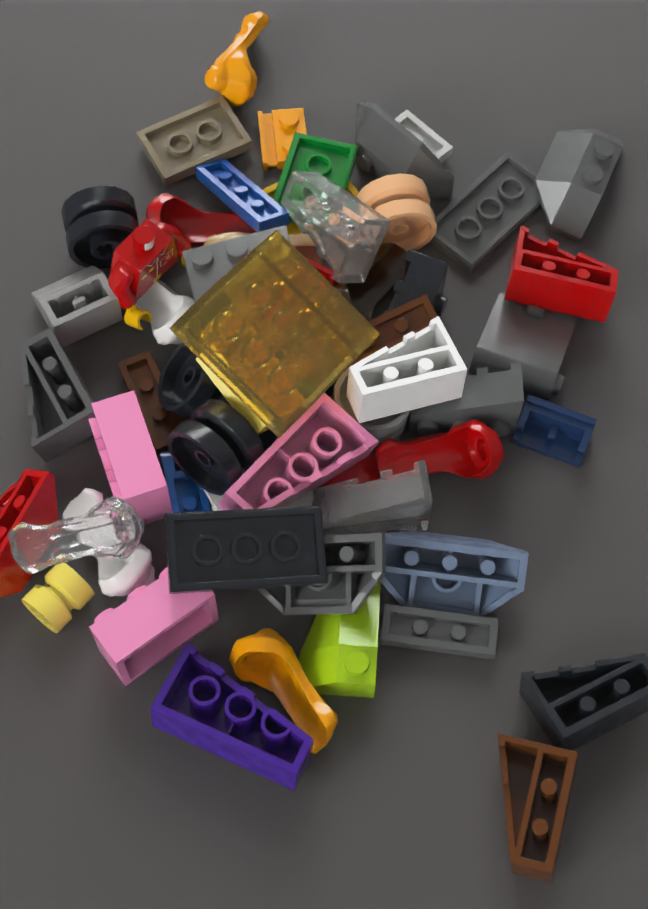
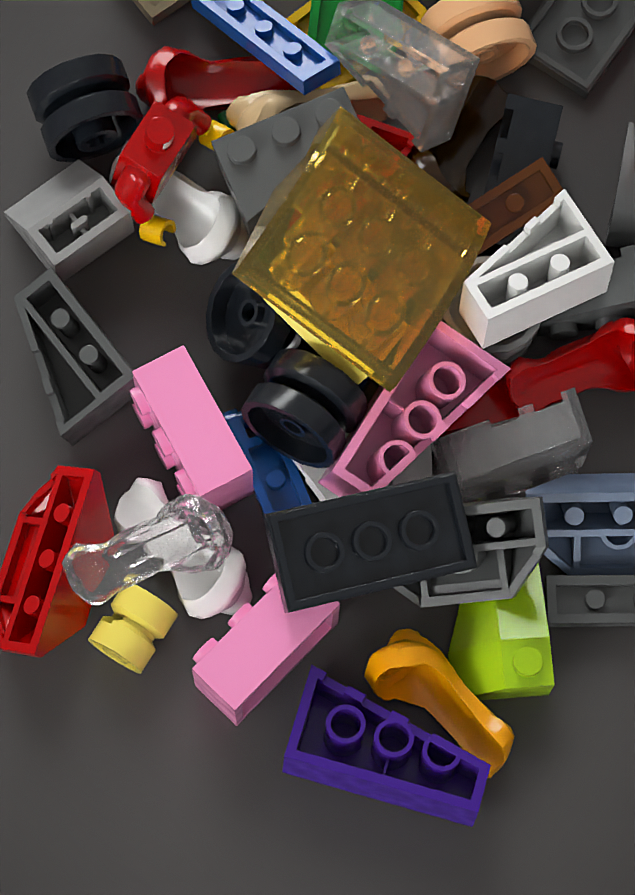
camera: 10 degrees left, 10 degrees up
(143, 377) = (183, 322): reddish brown plate -> none

